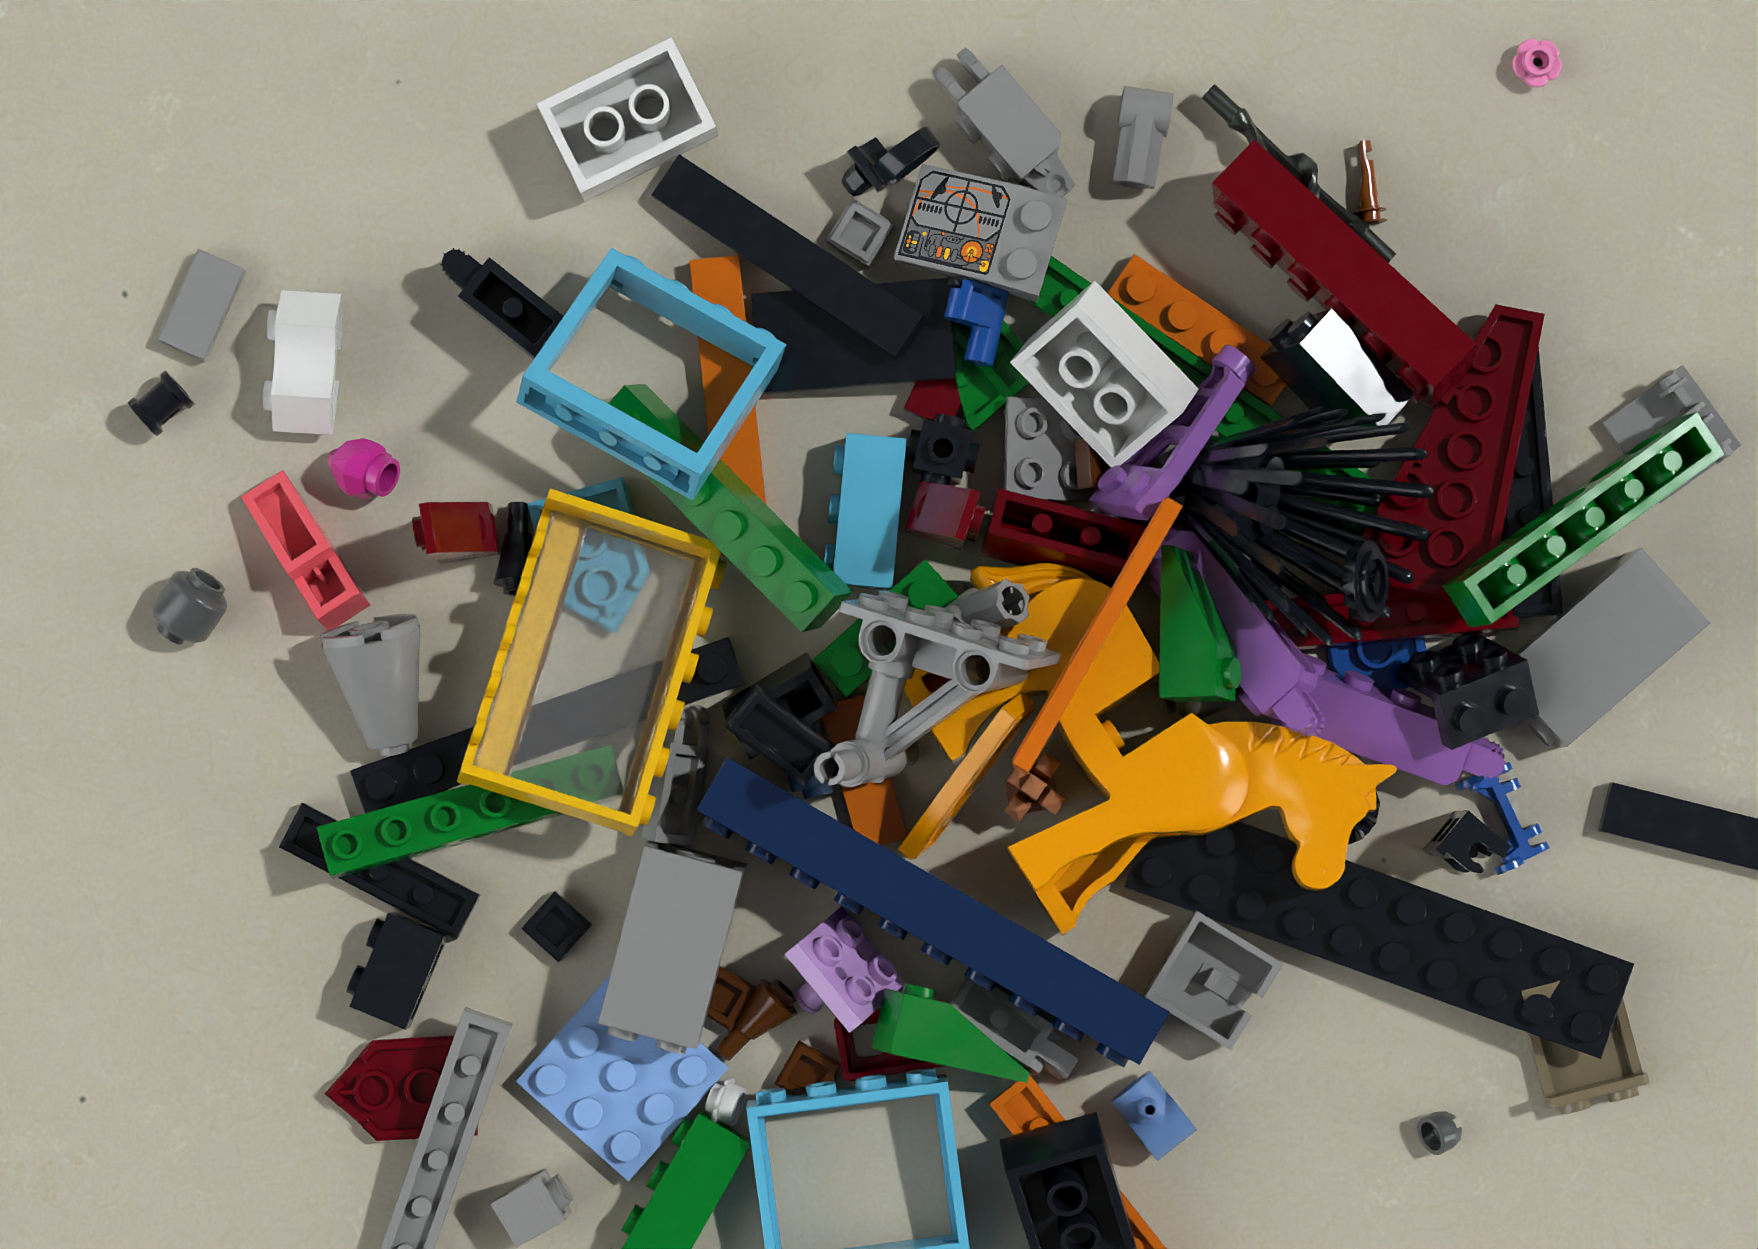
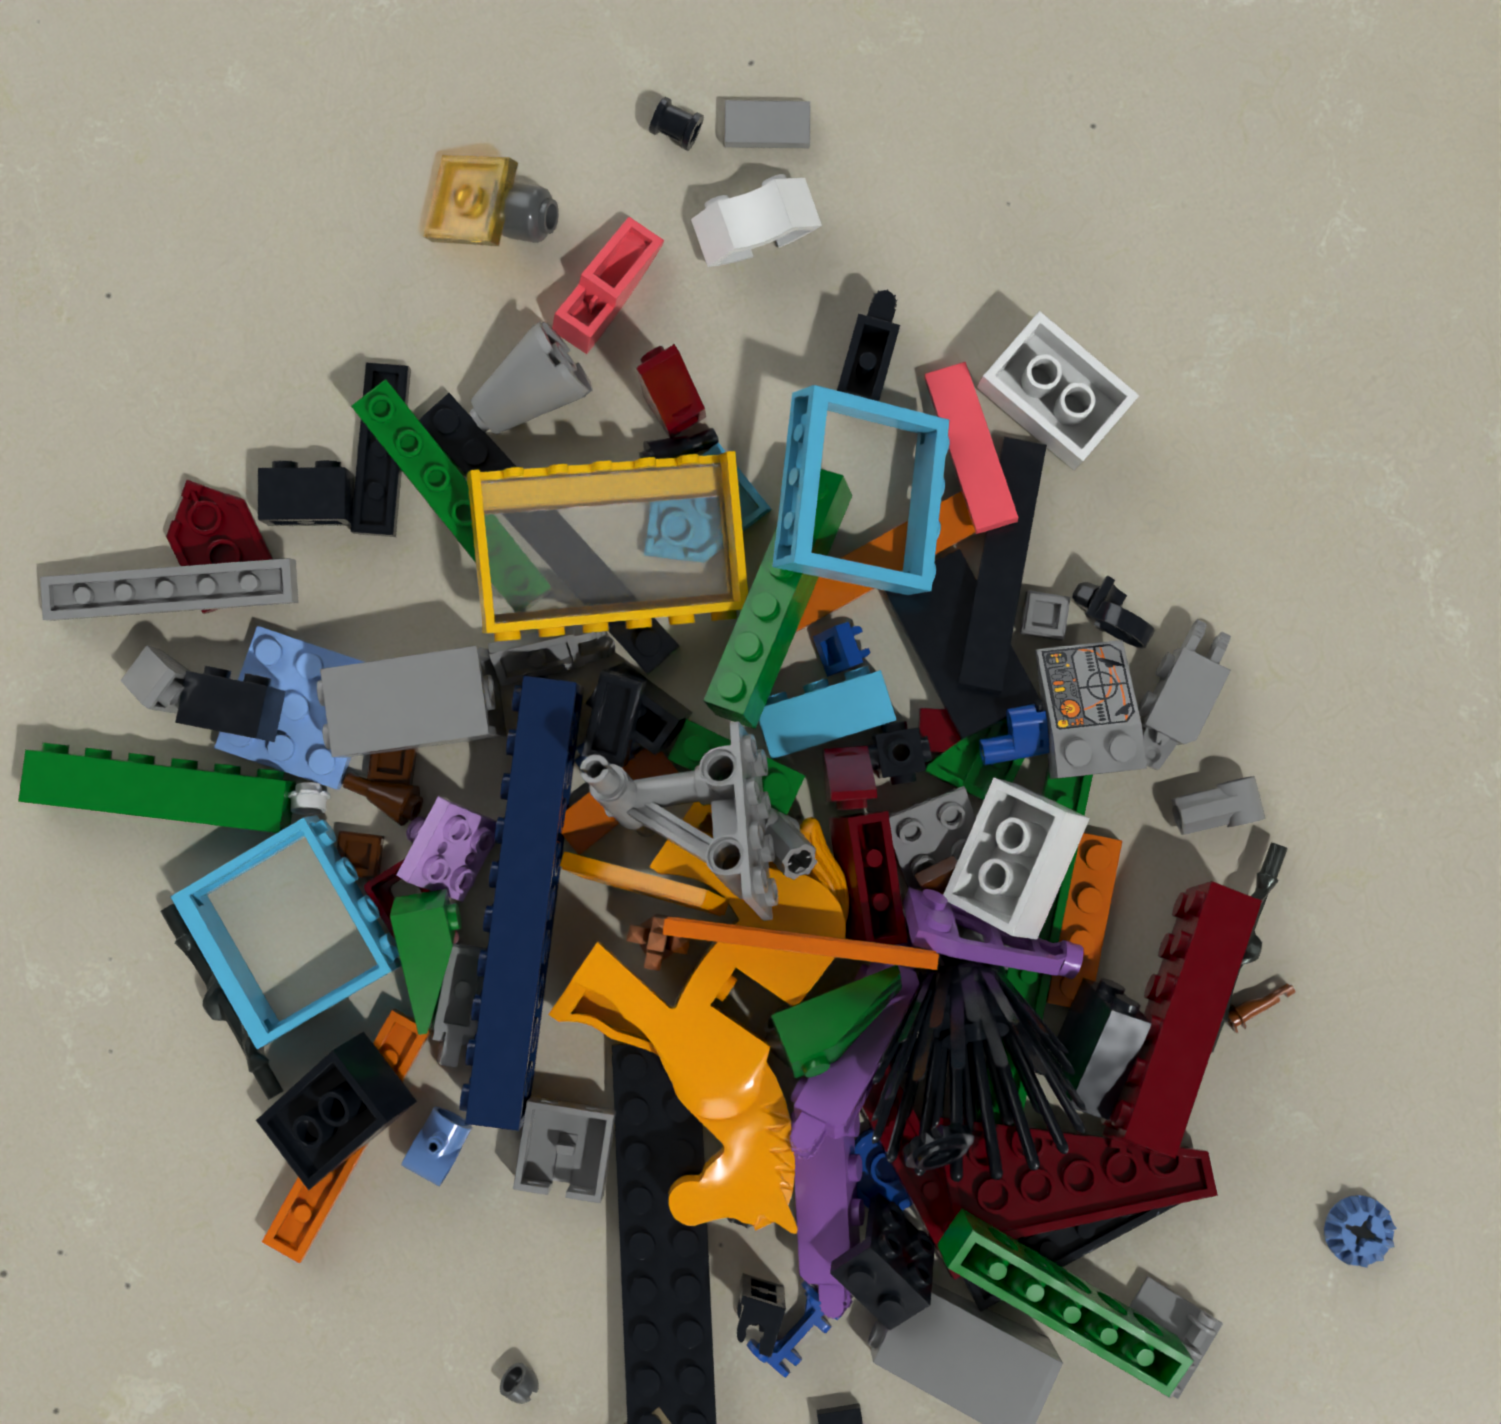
camera: 70 degrees right, 0 degrees up
(151, 660) = (470, 200): none -> clear yellow tile
(364, 468) = (691, 302): dark pink rock -> none
(556, 926) = (394, 606): black tile -> none
(593, 1138) = (231, 705): none -> black brick
(649, 235) = (971, 448): none -> coral tile
(804, 467) = (839, 649): none -> blue tile
(1527, 71) = (1405, 1101): bright pink plate -> none
(1647, 203) = (1354, 1211): none -> medium blue gear

